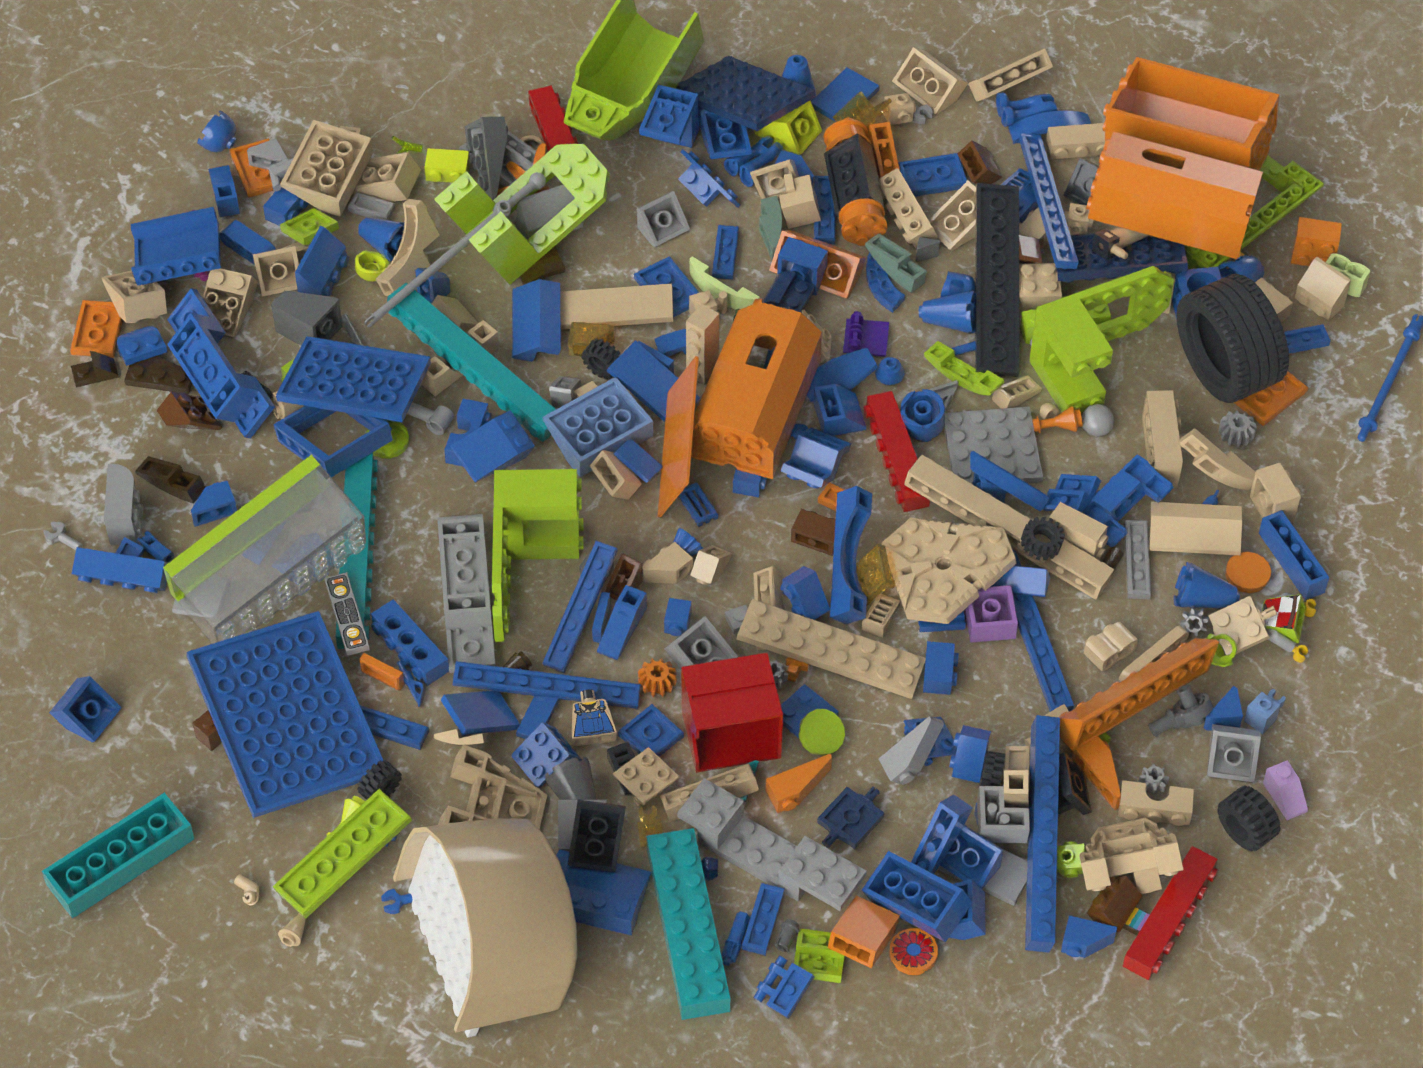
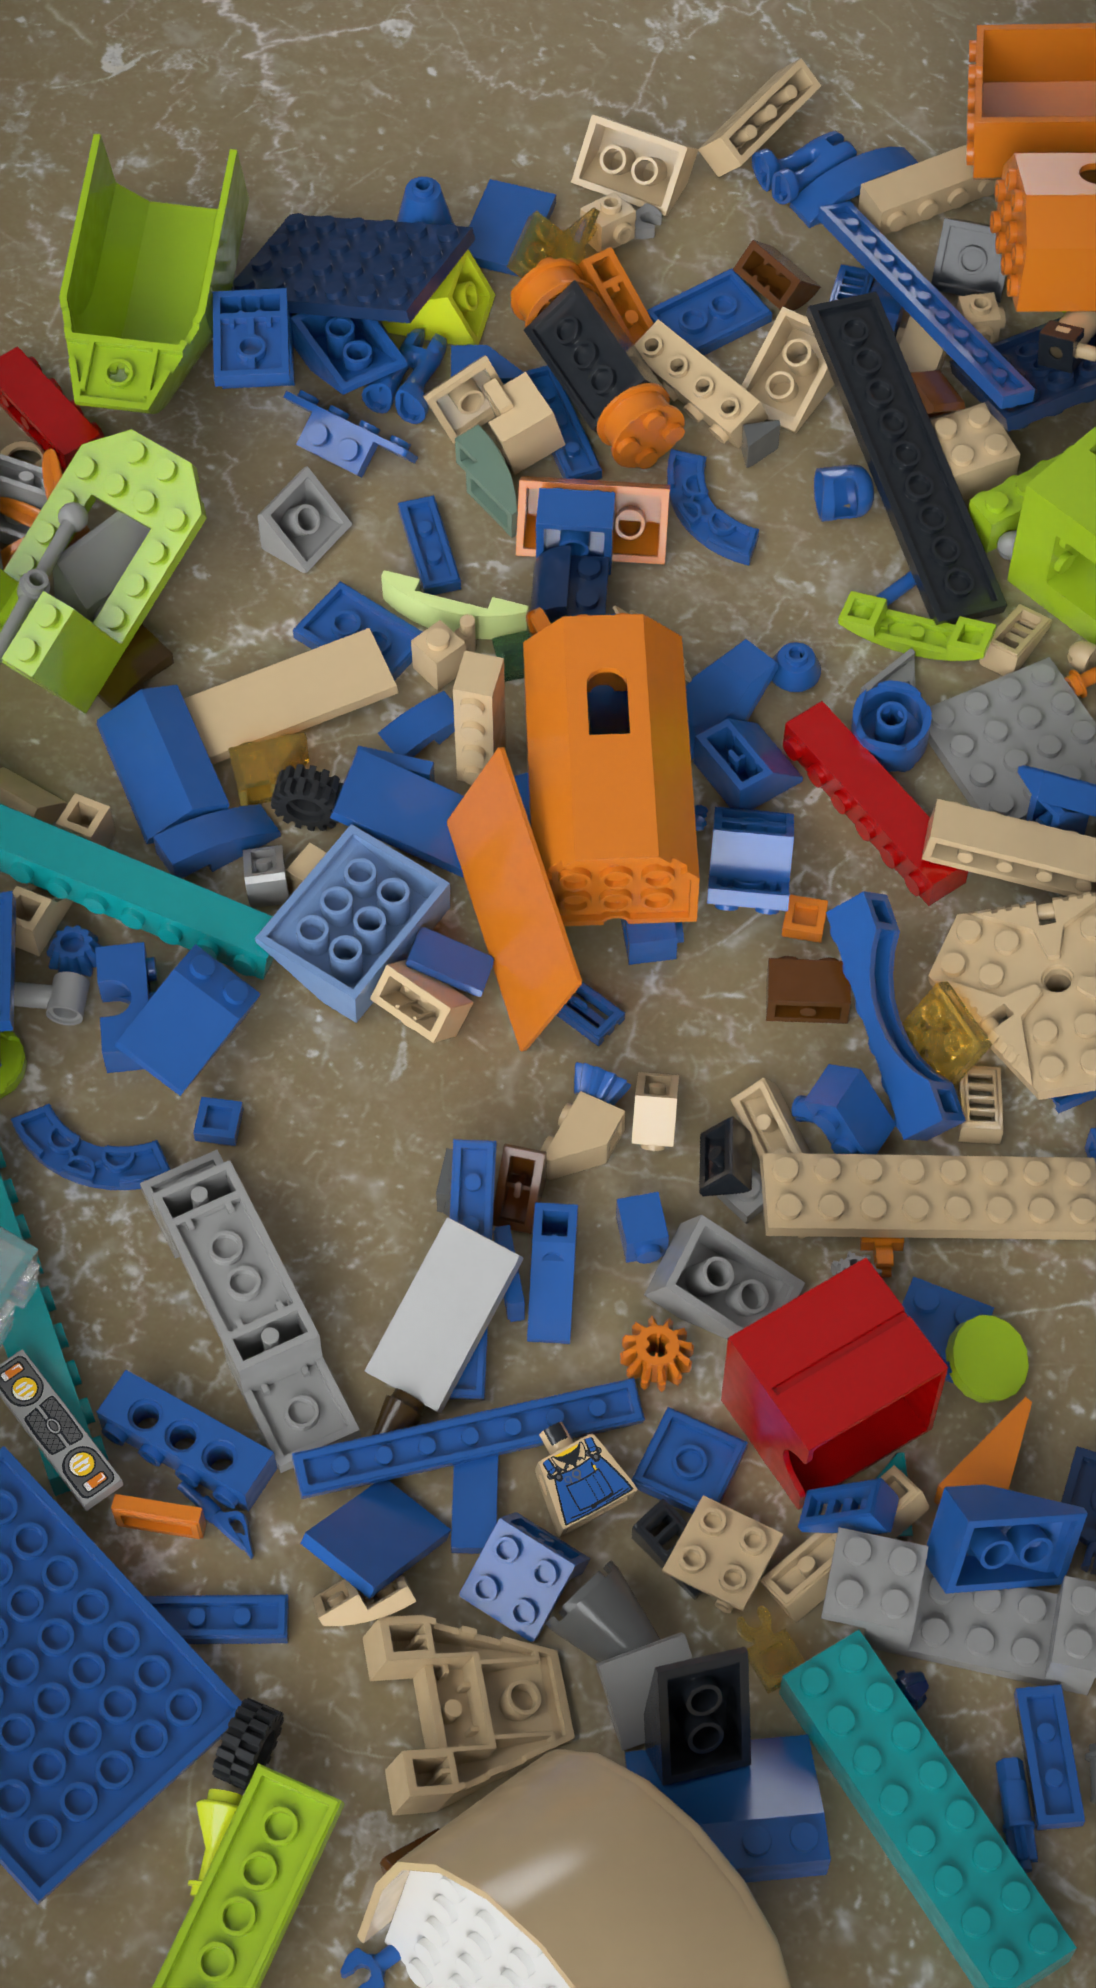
camera: 20 degrees left, 5 degrees up
(416, 501) = (83, 1162): none -> blue tile
(452, 397) = (73, 951): none -> blue piece
(485, 501) = (218, 1121): none -> blue plate
(532, 520) = (319, 1134): lime bracket -> none
(546, 365) = (214, 839): none -> blue slope
(558, 623) = (444, 1314): none -> tile
(720, 773) = (875, 1515): none -> blue slope
(735, 598) = (725, 1159): none -> black slope
(783, 811) = (1001, 1539): none -> blue slope
(865, 334) = (726, 618): dark purple hinge -> none
(896, 262) = (723, 478): sand green slope -> none
(951, 311) = (852, 535): blue cone -> none

